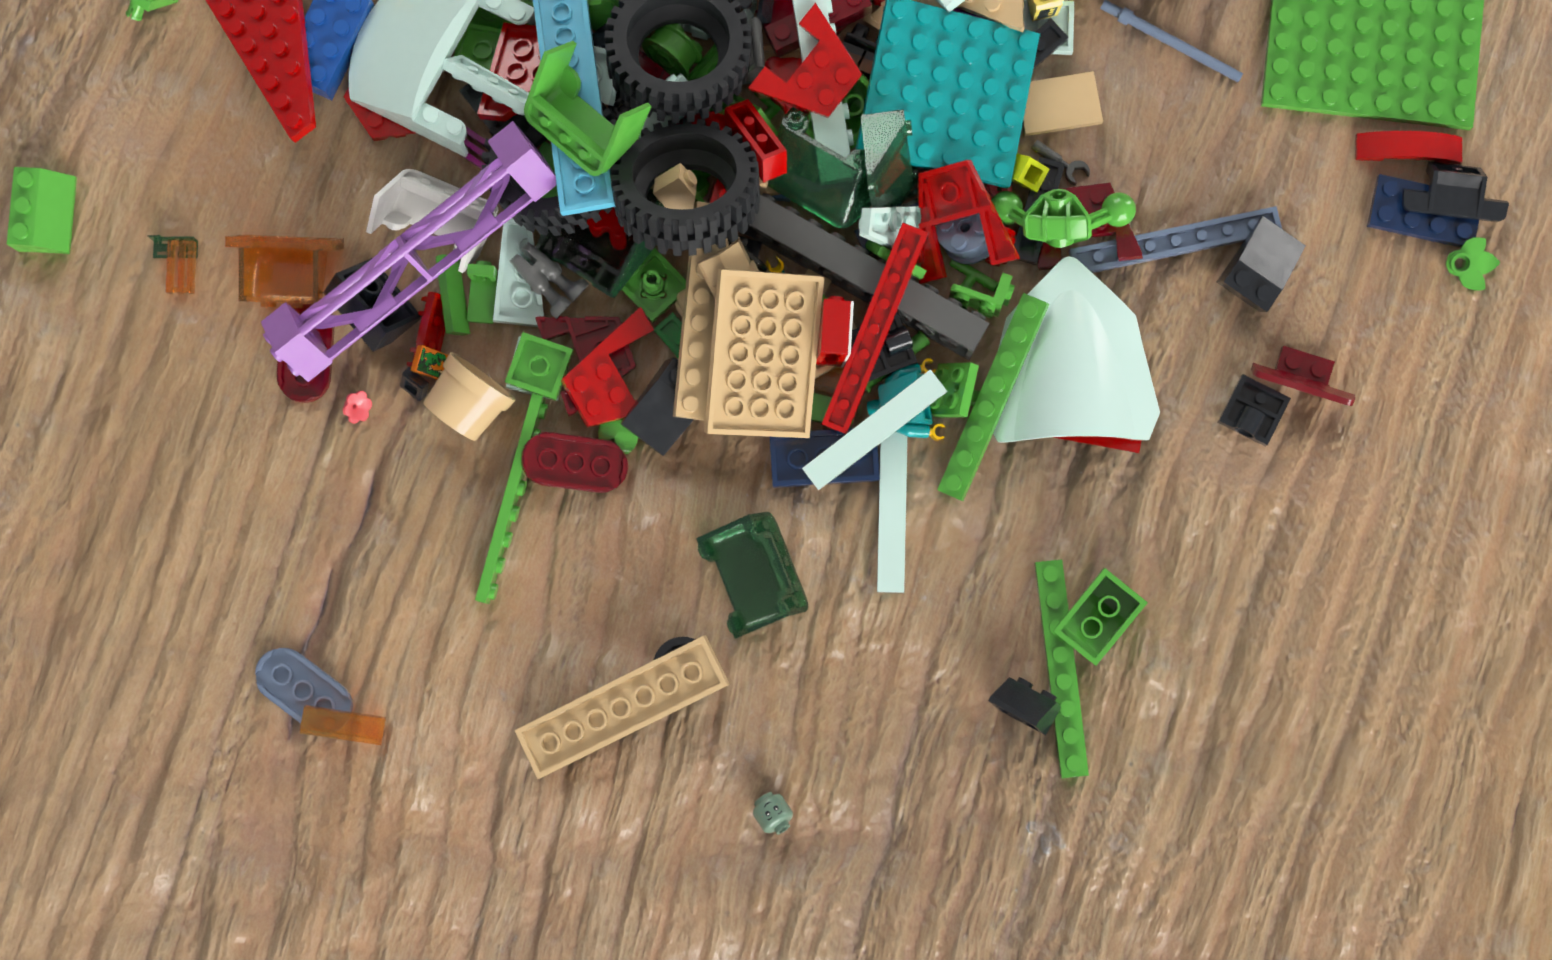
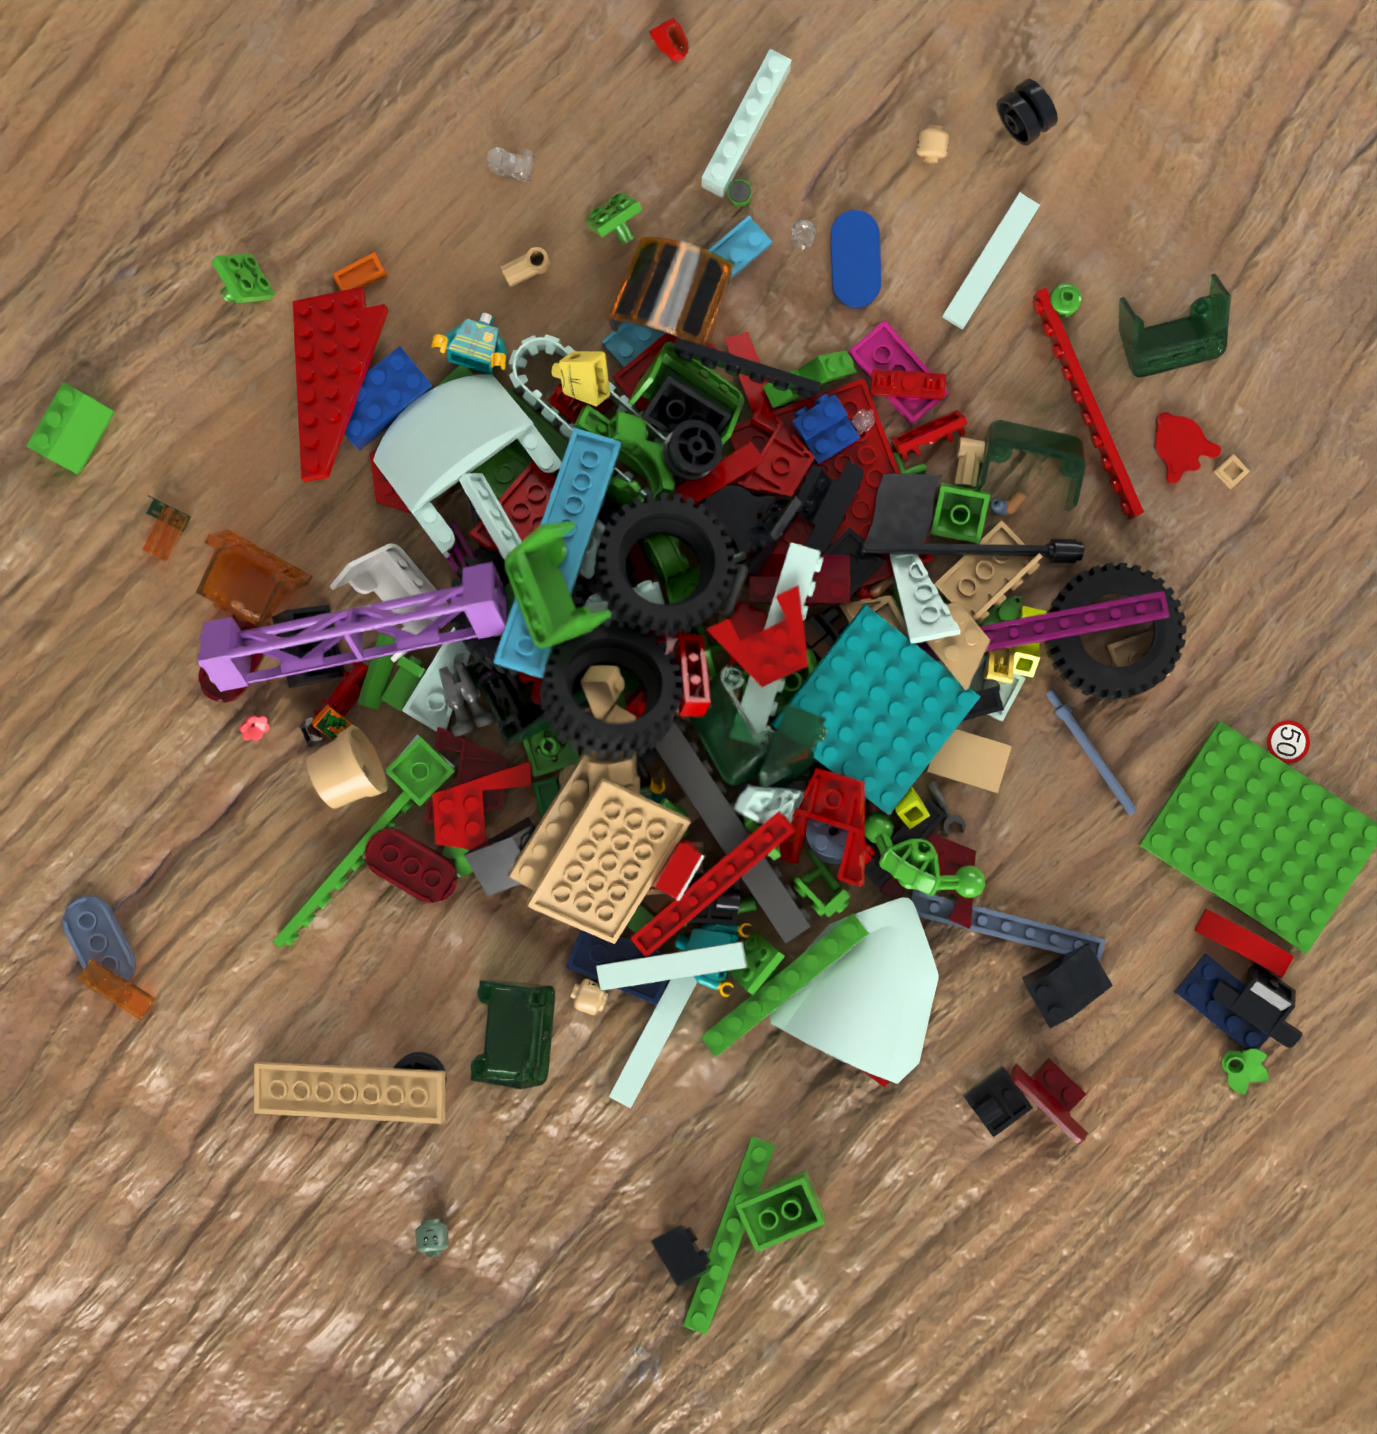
camera: 25 degrees right, 5 degrees up
(810, 504) = (589, 997): none -> tan head

